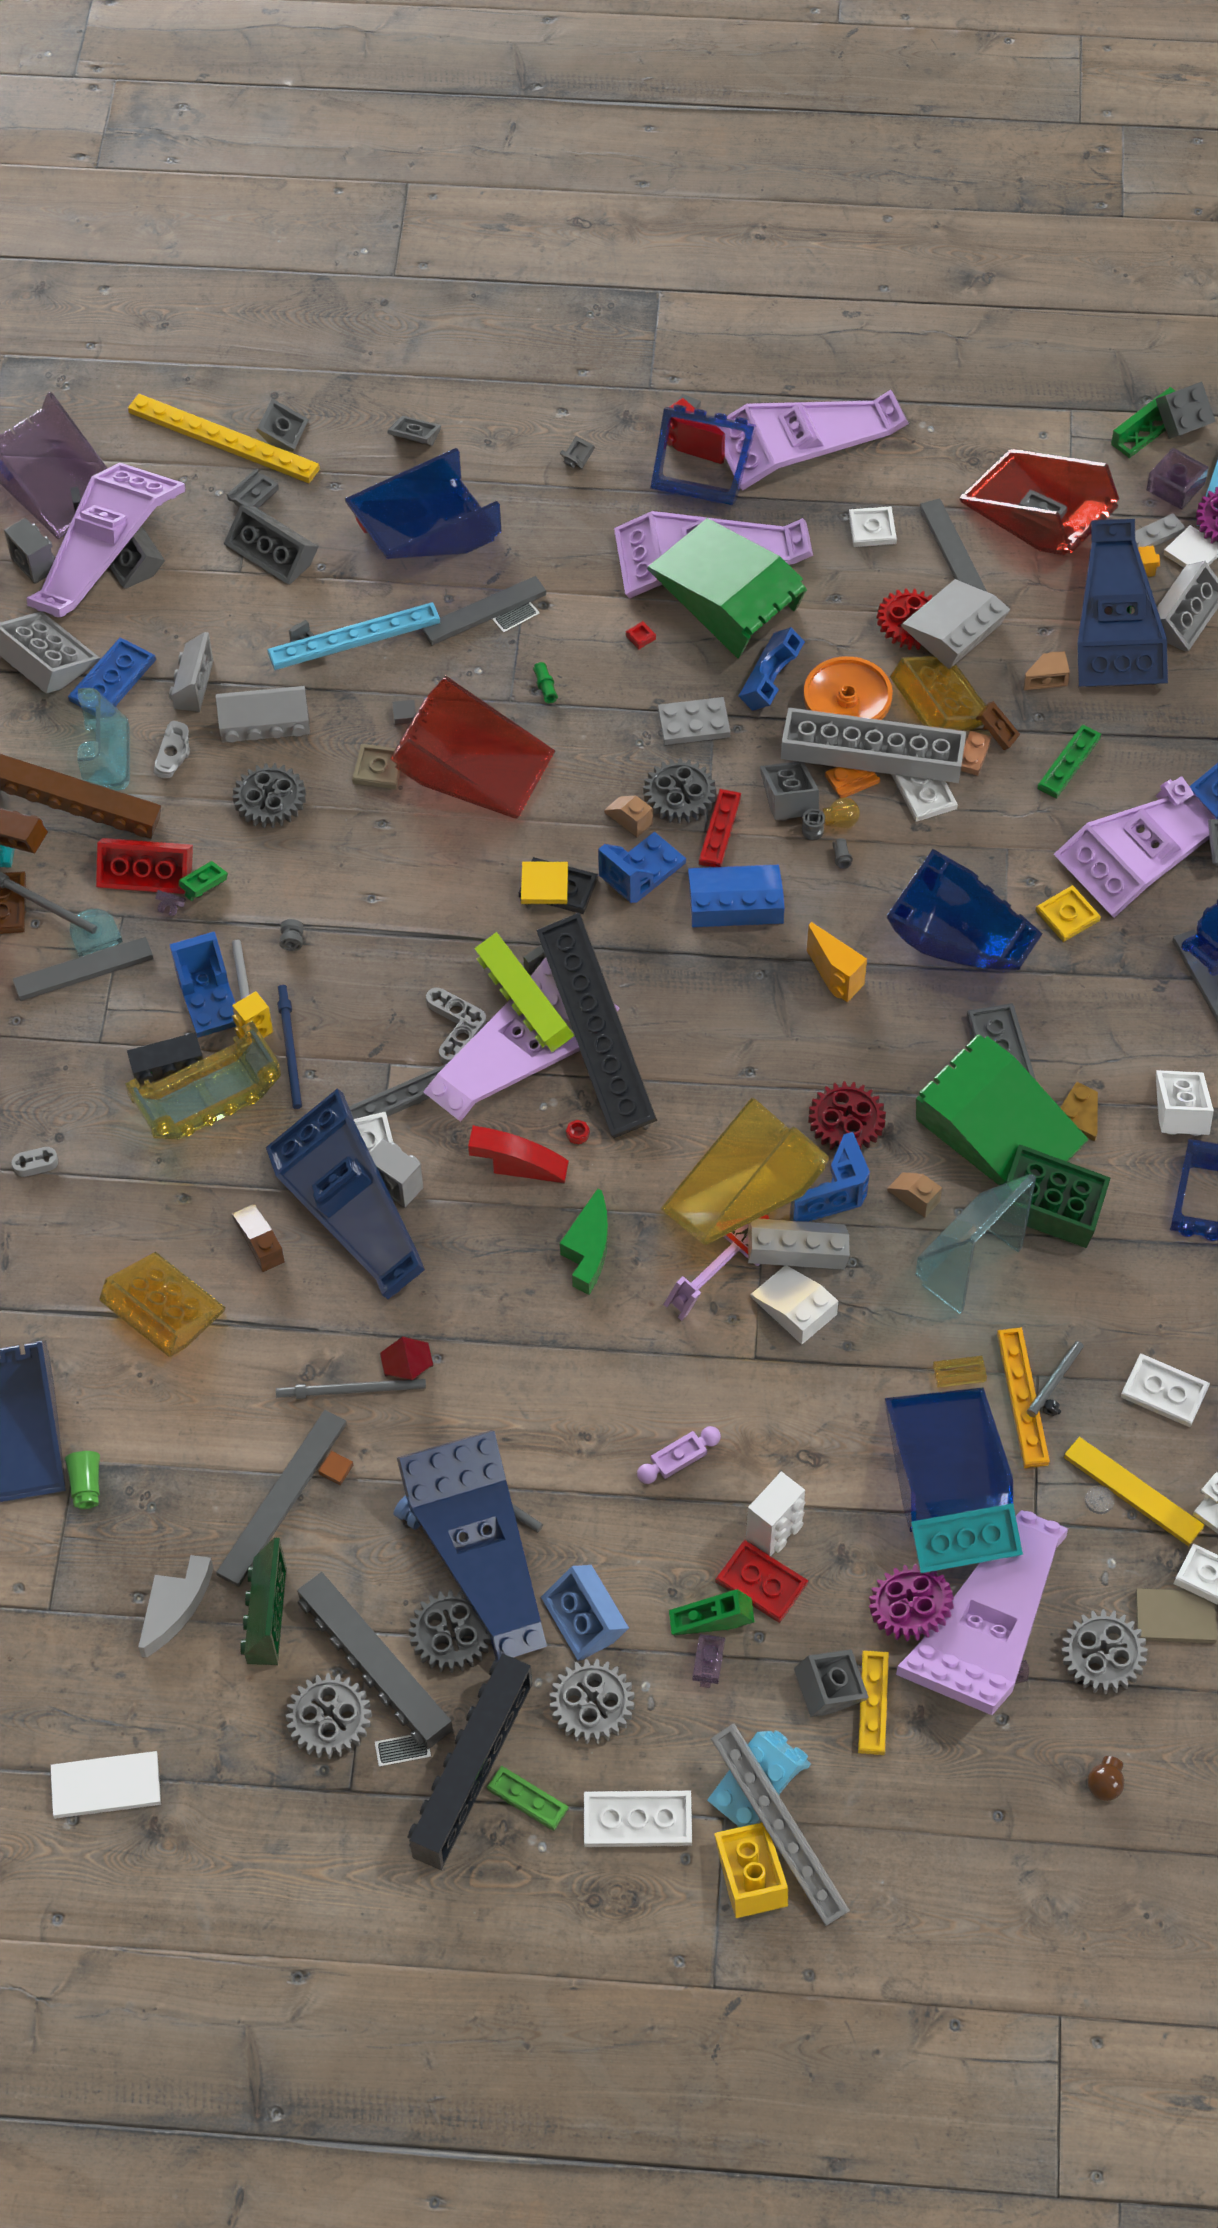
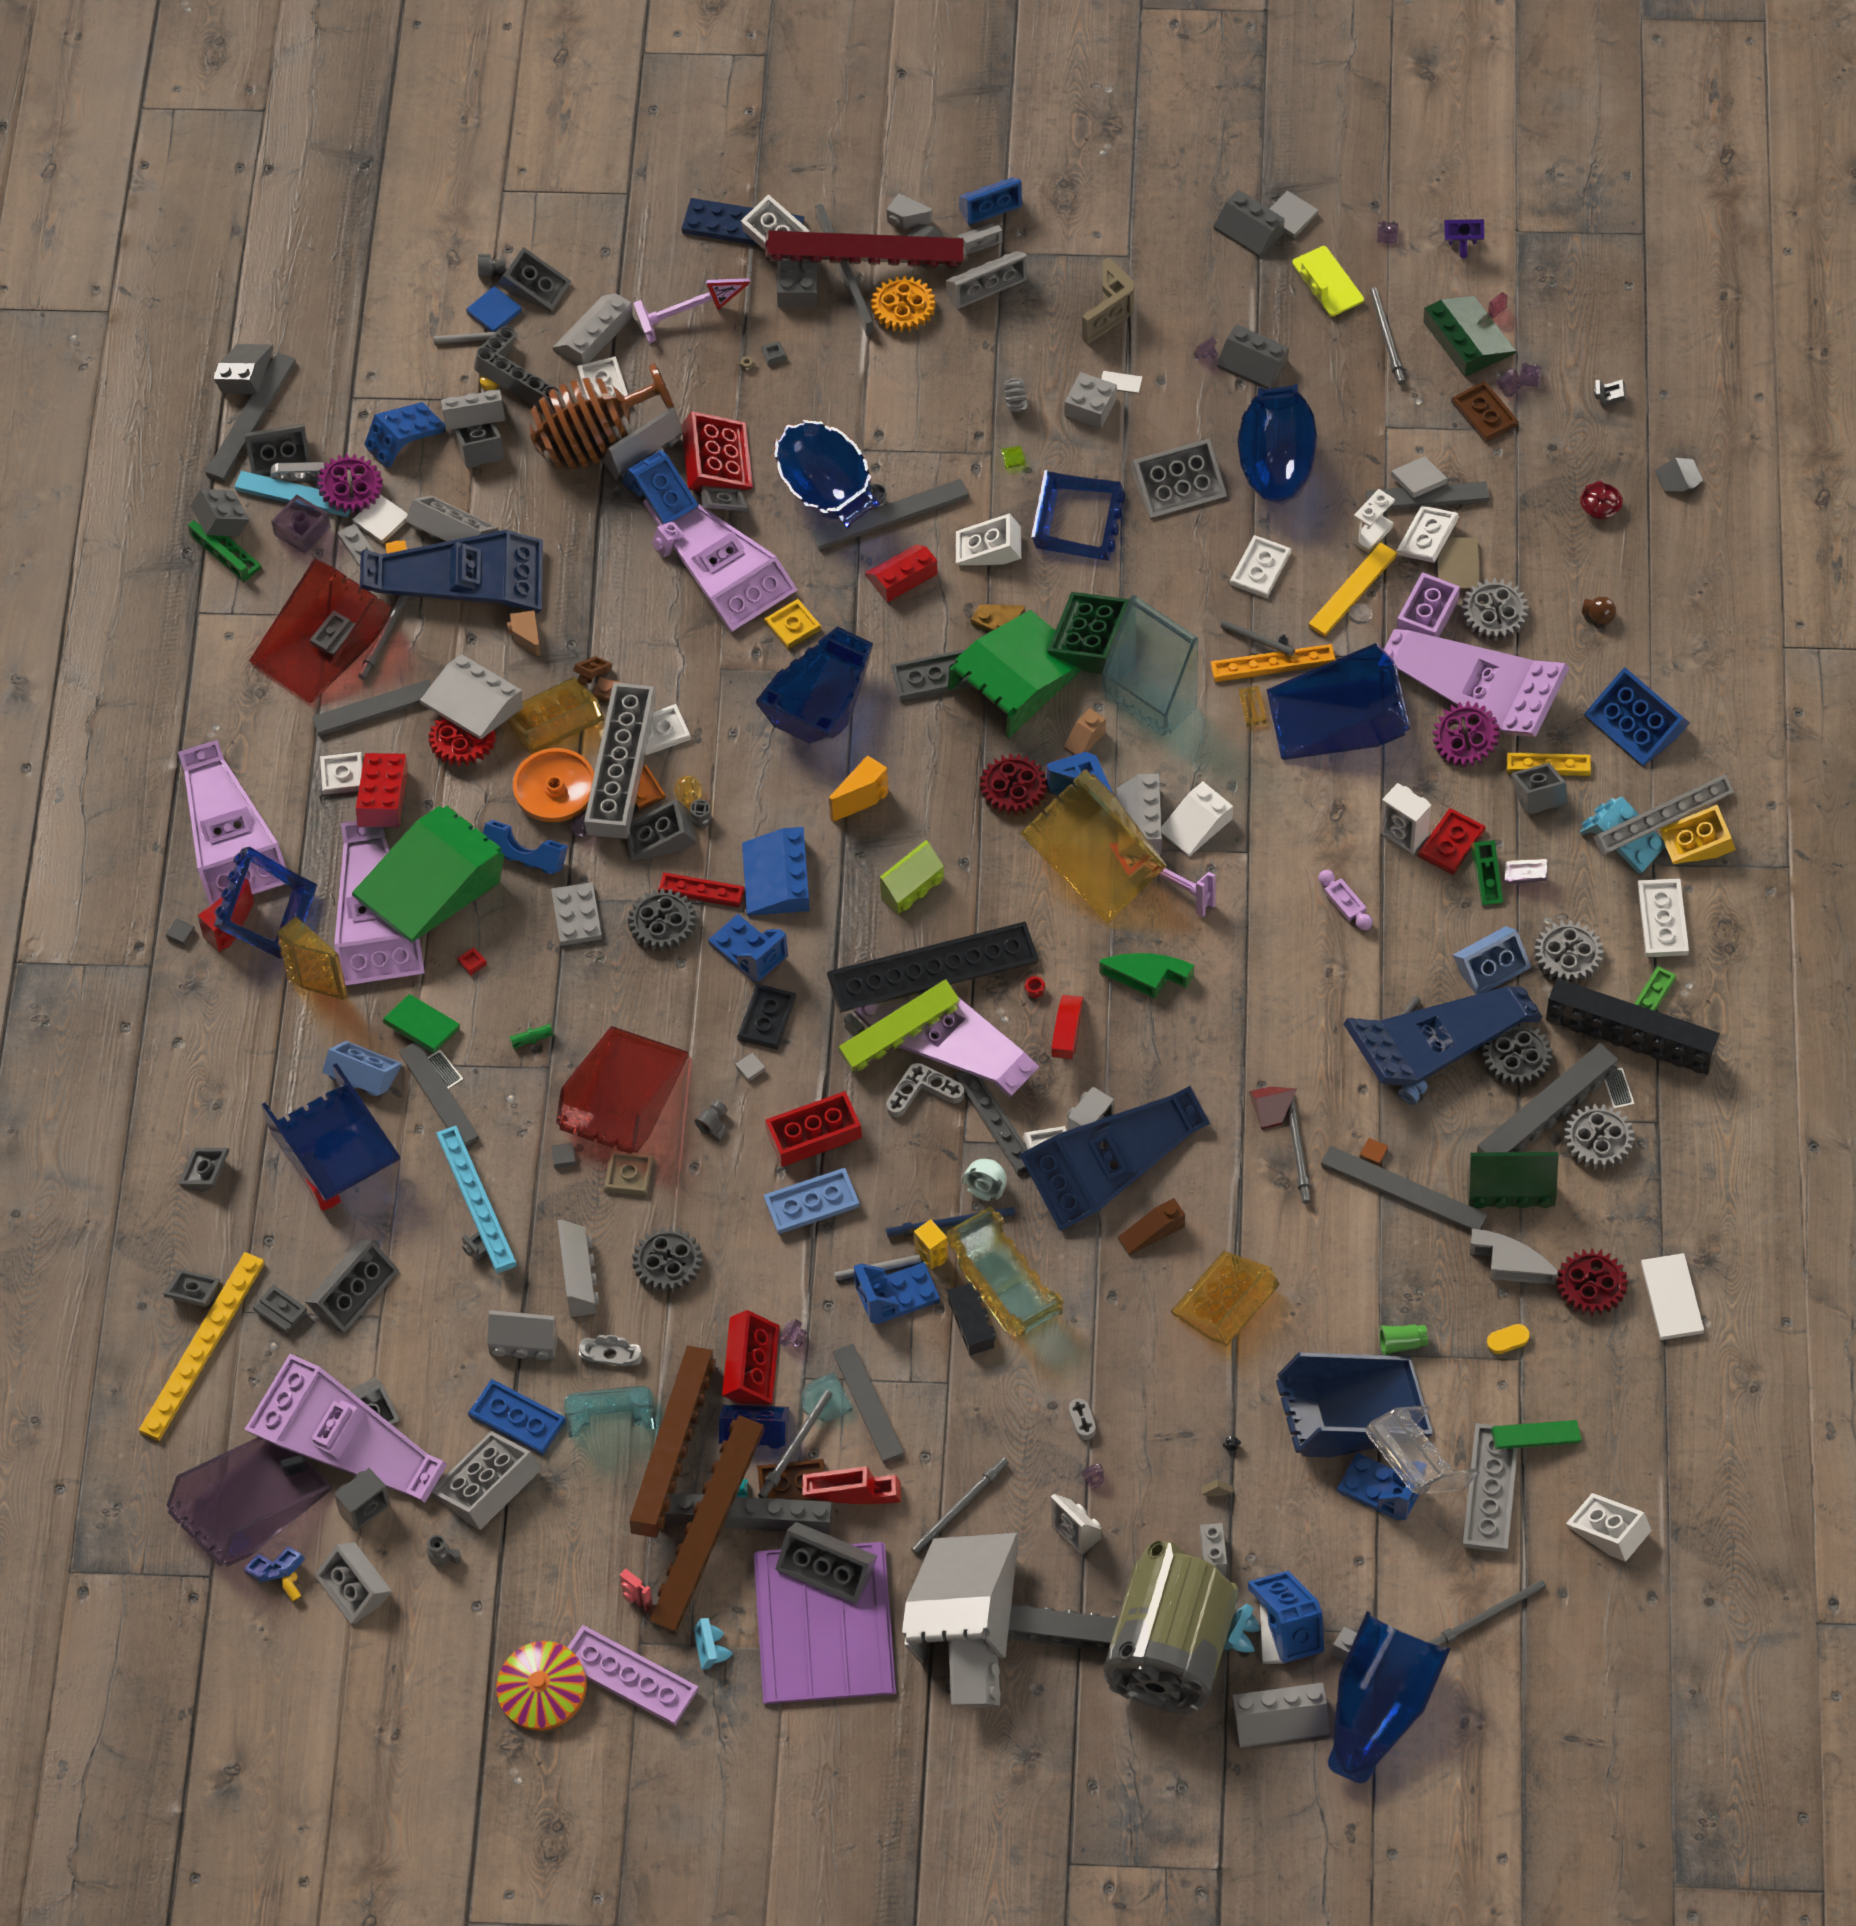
camera: 90 degrees left, 0 degrees up
(69, 867) = (772, 1417): none -> clear blue slope
(73, 1596) = (1508, 1339): none -> yellow tile
(108, 1701) = (1592, 1282): none -> dark red gear
(202, 880) = (769, 1306): green plate -> none
(291, 935) = (830, 1227): dark grey wheel -> none
(326, 920) = (811, 1201): none -> medium blue plate
(332, 1072) = (985, 1179): none -> light aqua cylinder
(407, 918) = (813, 1128): none -> red brick
(430, 831) = (709, 1120): none -> dark grey piece
(496, 870) = (750, 1067): none -> light grey tile
(518, 546) = (362, 1067): none -> medium blue slope
(544, 883) = (770, 1022): yellow tile -> none
(565, 592) = (421, 1023): none -> green tile
(577, 453) = (241, 1021): dark grey bracket -> none
(626, 484) = (311, 961): none -> clear yellow slope
(631, 814) = (687, 959): medium nougat slope -> none
(718, 1011) = (911, 878): none -> lime slope
(839, 547) = (381, 790): none -> red brick
(843, 858) = (731, 792): dark grey pin -> none
(941, 1812) = (1636, 717): none -> blue slope
(966, 1538) = (1416, 688): teal plate -> none
(1011, 544) = (371, 658): none -> dark grey bar
(1069, 761) = (625, 620): green tile -> none
(1097, 1568) = (1429, 606): none -> lavender brick
(1140, 1016) = (903, 572): none -> red slope

